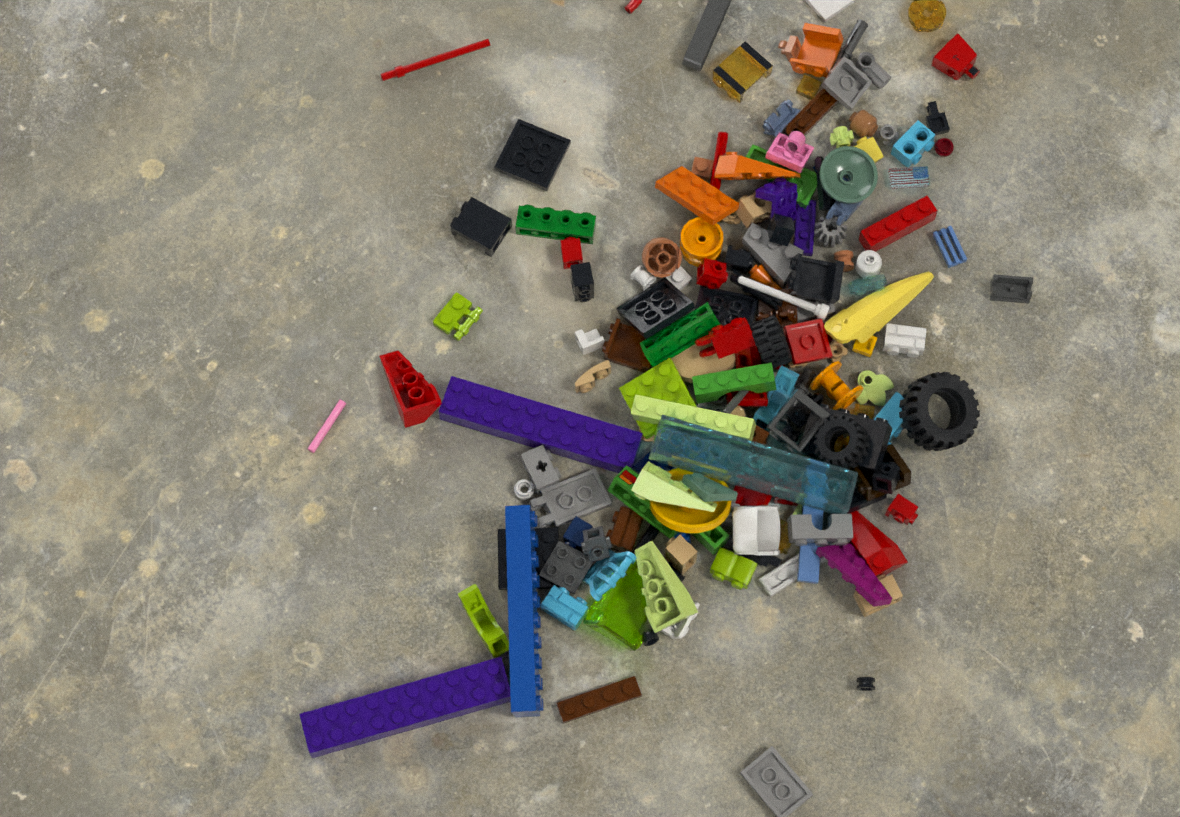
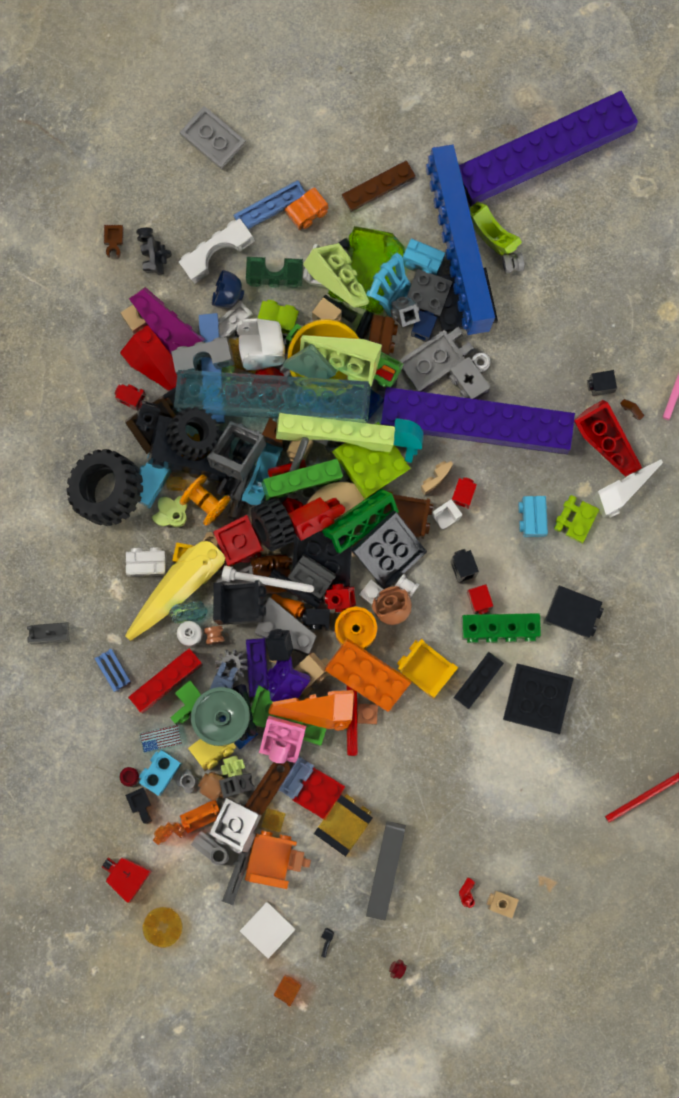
camera: 170 degrees right, 10 degrees up
(376, 414) = (637, 413): none -> reddish brown tile
(401, 444) = (602, 383): none -> black brick
(409, 331) = (615, 495): none -> white wedge
(464, 583) = (513, 262): none -> light grey wheel
(500, 323) = (533, 516): none -> medium azure brick
(568, 357) = (464, 492): none -> red brick
(587, 180) = (478, 680): none -> black plate
(616, 413) = (408, 435): none -> teal brick
(635, 198) = (426, 668): none -> yellow panel
(682, 683) = (307, 209): none -> orange brick
(712, 612) = (290, 275): none -> clear green arch
(722, 696) = (270, 205): none -> medium blue tile
(738, 295) = (312, 573): none -> dark grey plate
(759, 104) = (319, 793): none -> red plate
(766, 660) = (234, 236): none -> white arch
(783, 603) = (228, 290): none -> dark blue cylinder
(839, 116) = (236, 784): none -> dark grey leg
(854, 657) = (157, 254): none -> black hips
(875, 205) = (188, 695): none -> bright green brick
(879, 101) = (200, 816): none -> orange hinge
(901, 687) = (113, 237): none -> reddish brown plate
(912, 88) = (166, 831): none -> clear orange bracket

